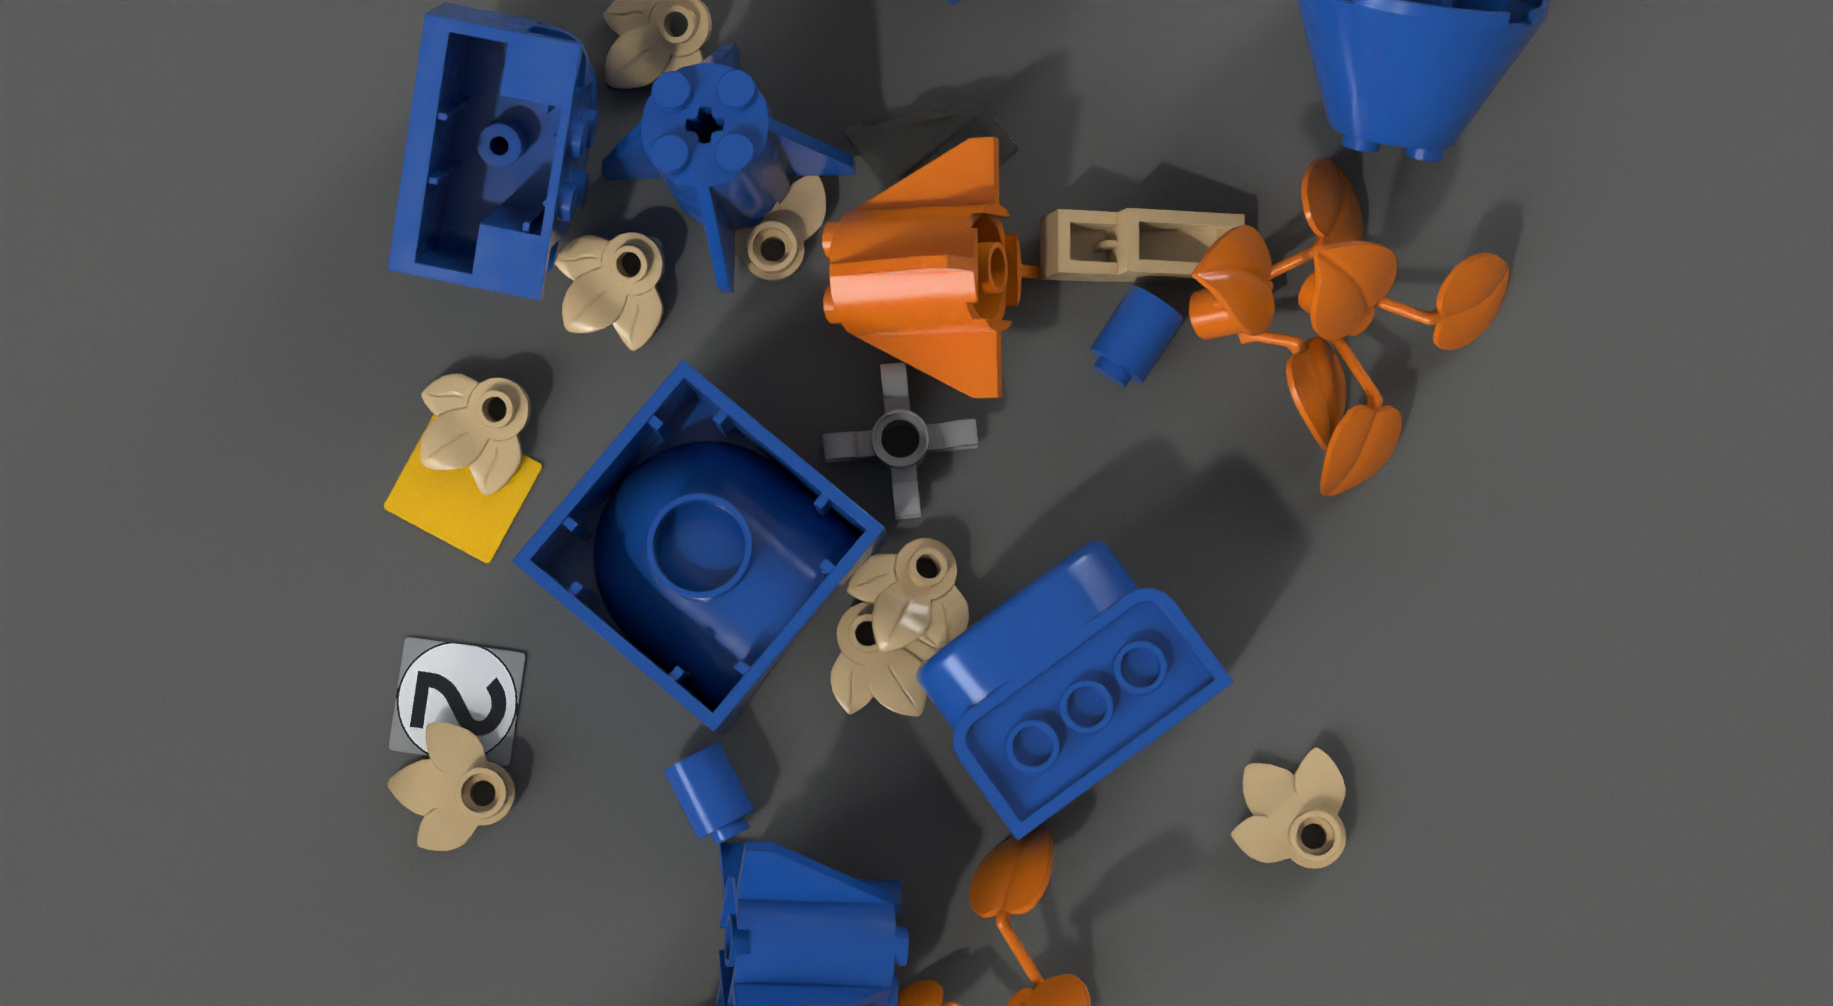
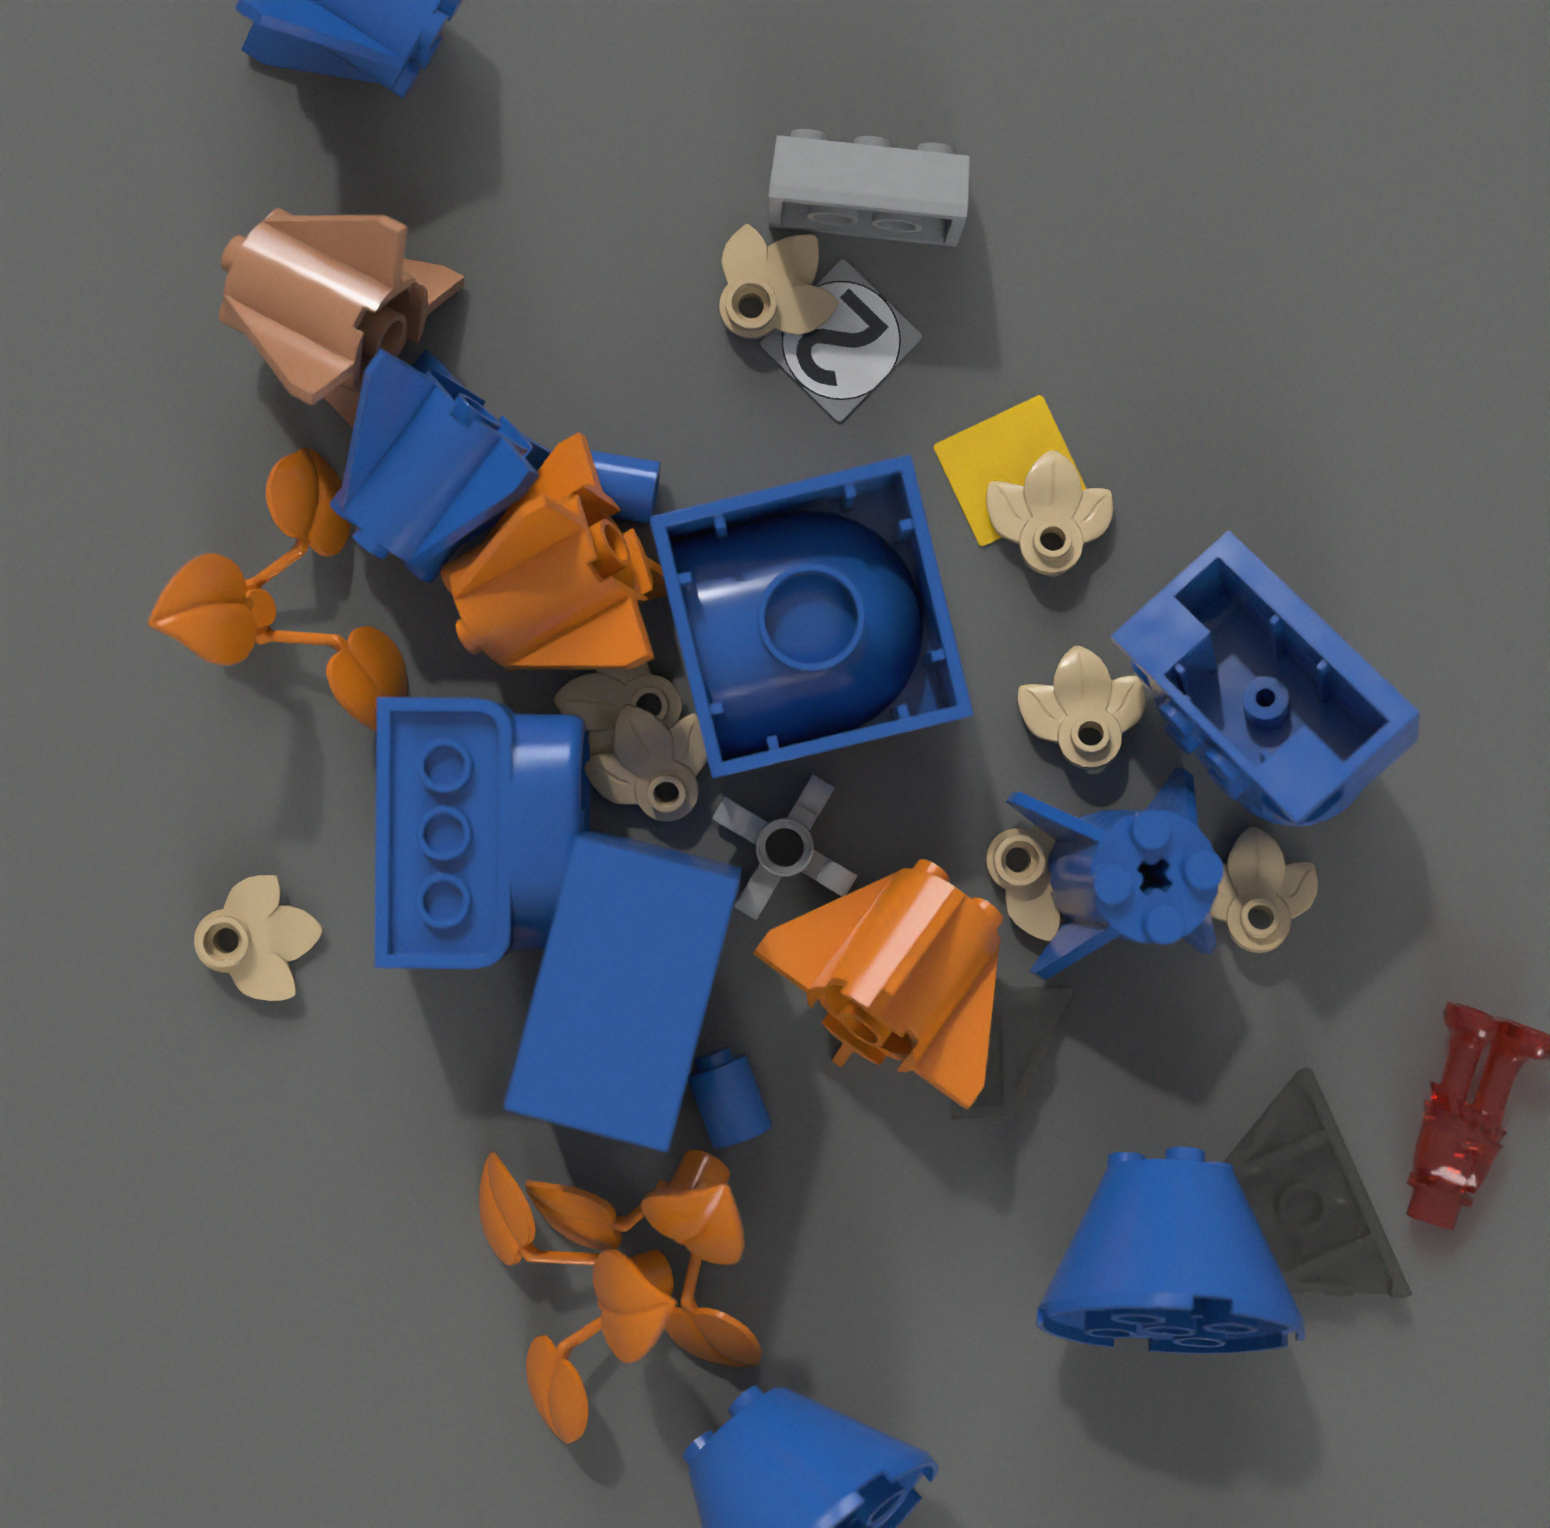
camera: 125 degrees right, 5 degrees up
(316, 765) = (869, 188): none -> light grey slope
(818, 776) = (557, 577): none -> orange brick
(1098, 467) = (623, 988): none -> blue piece
(1128, 243) = (803, 1155): tan slope -> none

